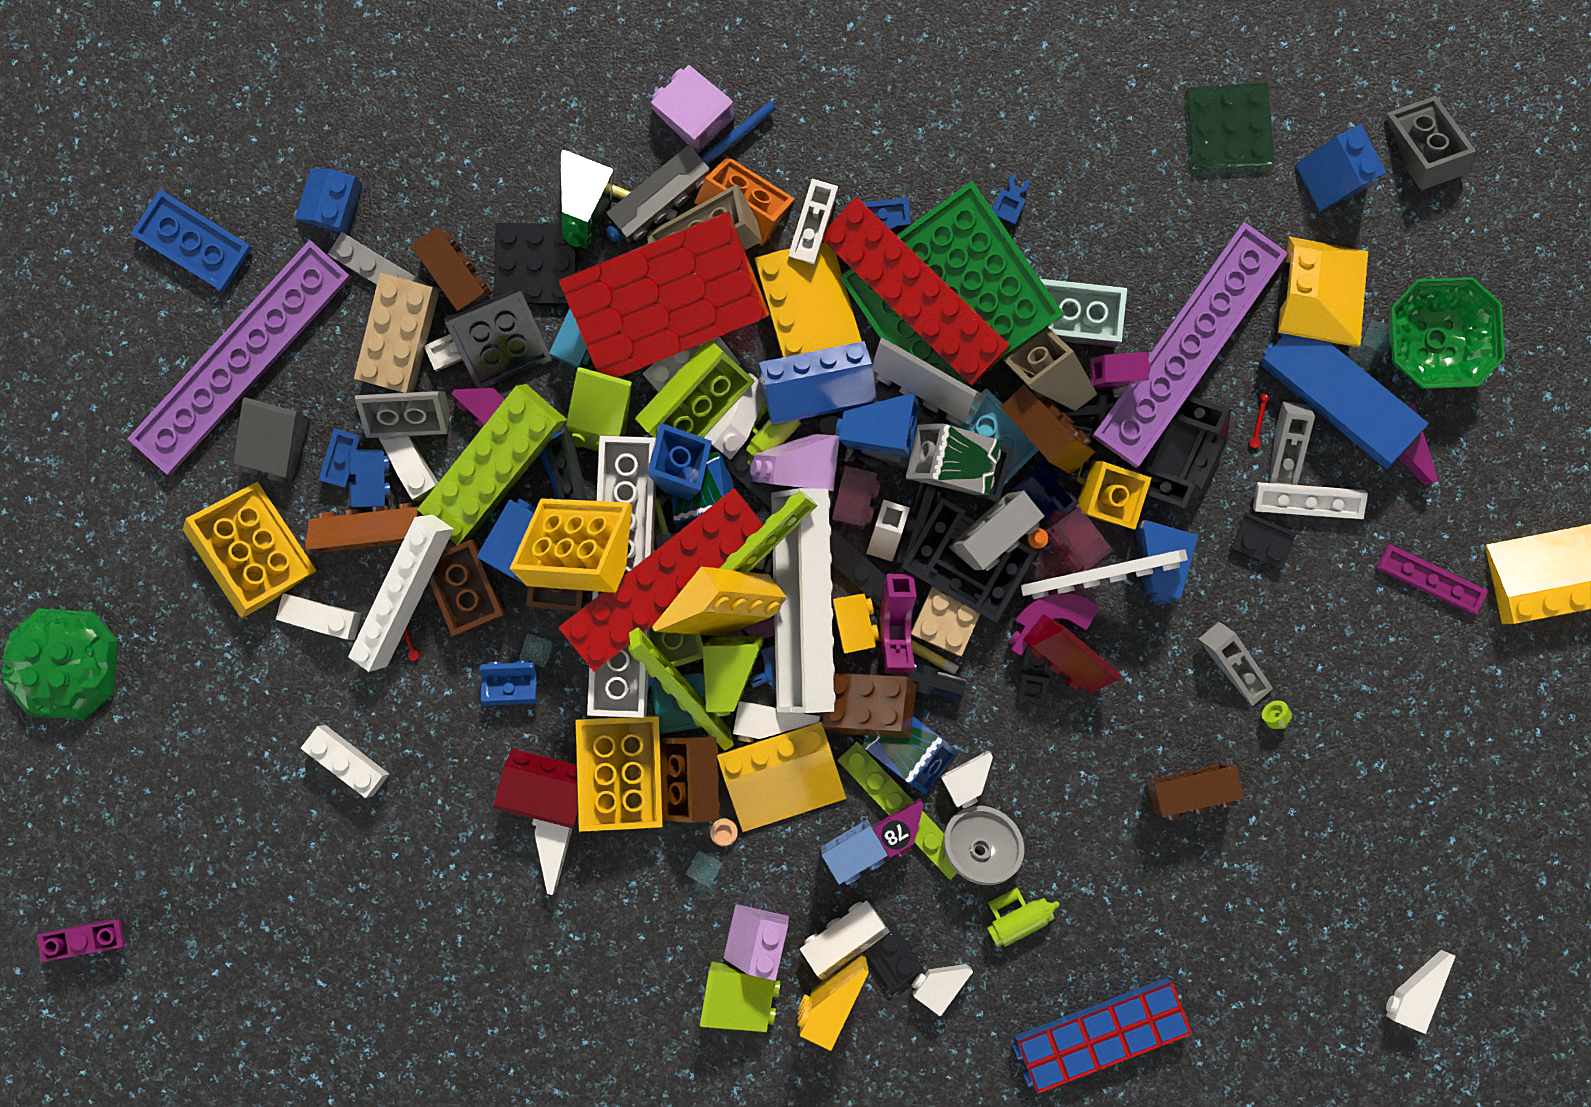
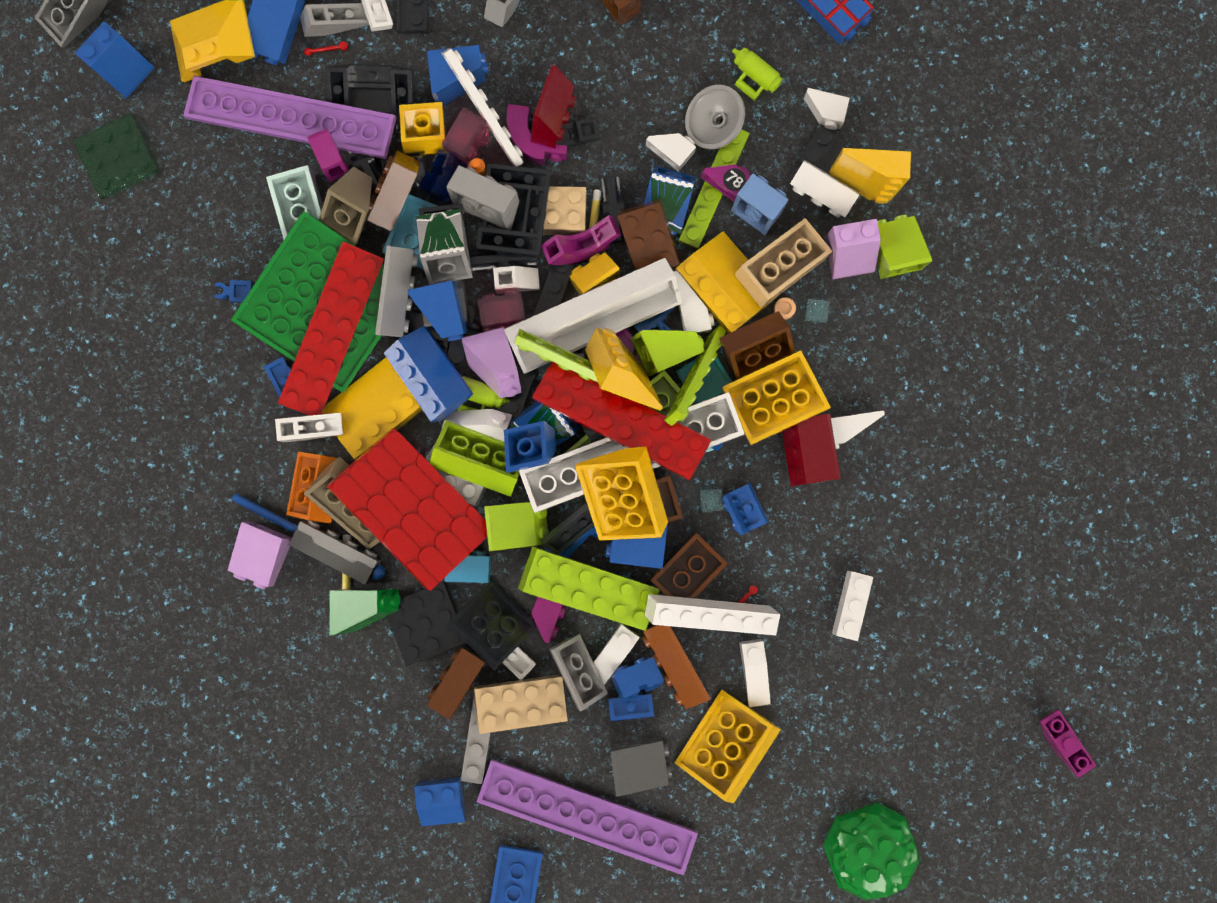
camera: 115 degrees left, 0 degrees up
(774, 851) = (783, 262): none -> tan brick

